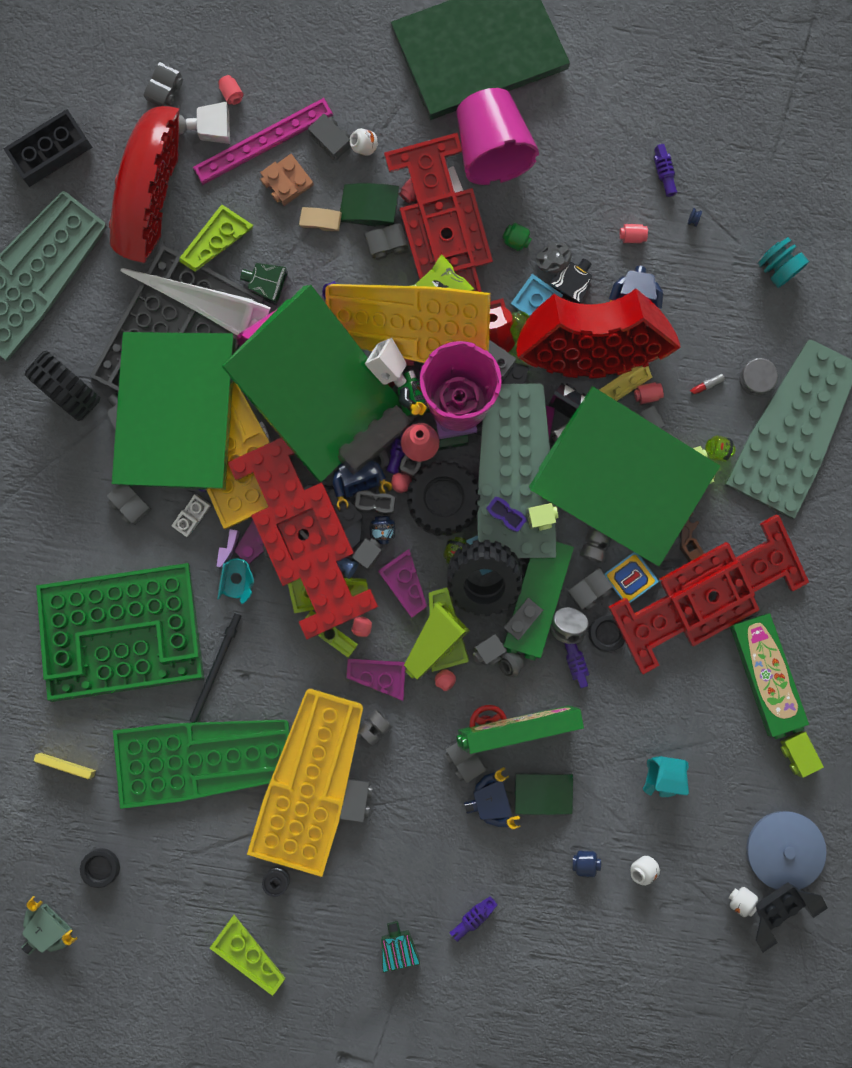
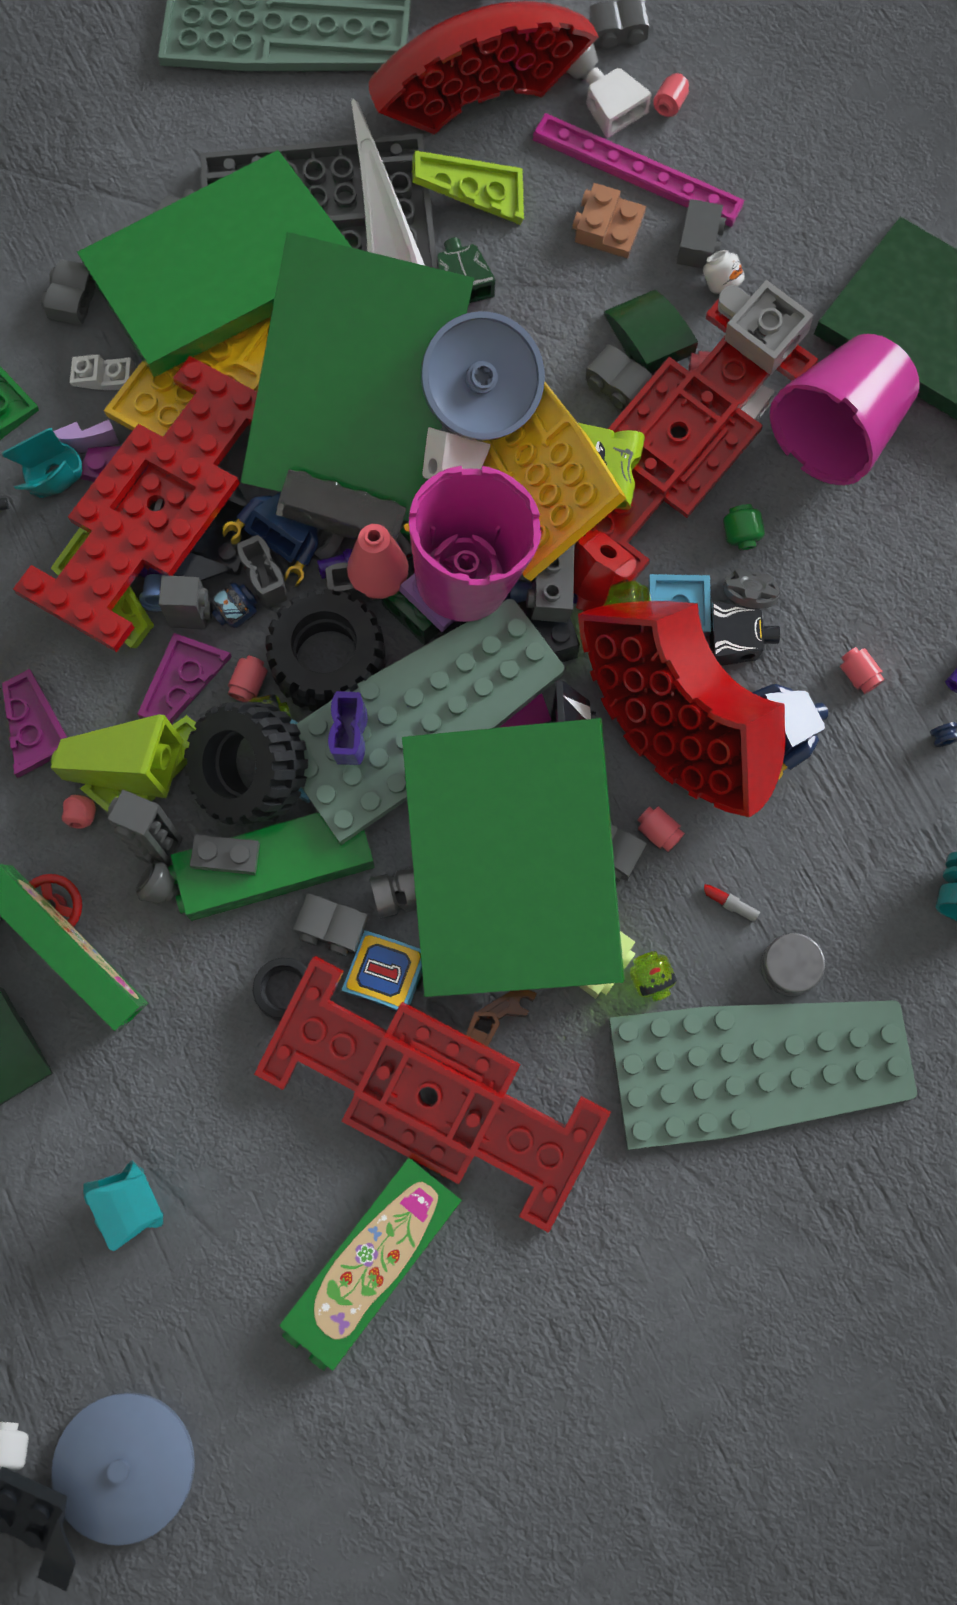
camera: 55 degrees right, 10 degrees down
(62, 386) = (159, 119): black tyre -> none
(320, 218) = (590, 288): tan slope -> none
(340, 641) = (47, 644): lime piece -> none
(361, 626) = (85, 660): coral piece -> none
(362, 317) = (482, 376): none -> sand blue dish
(400, 482) = (312, 582): coral piece -> none
(423, 147) = (766, 311): none -> light grey brick
(429, 548) = (247, 679): none -> coral brick
(542, 516) = (375, 774): yellowish green brick -> none
(569, 625) = (258, 926): flat silver head -> none
(577, 664) = (215, 972): dark purple hinge -> none
(627, 382) = (648, 788): light yellow plate -> none
(801, 754) = (282, 1392): lime brick -> none

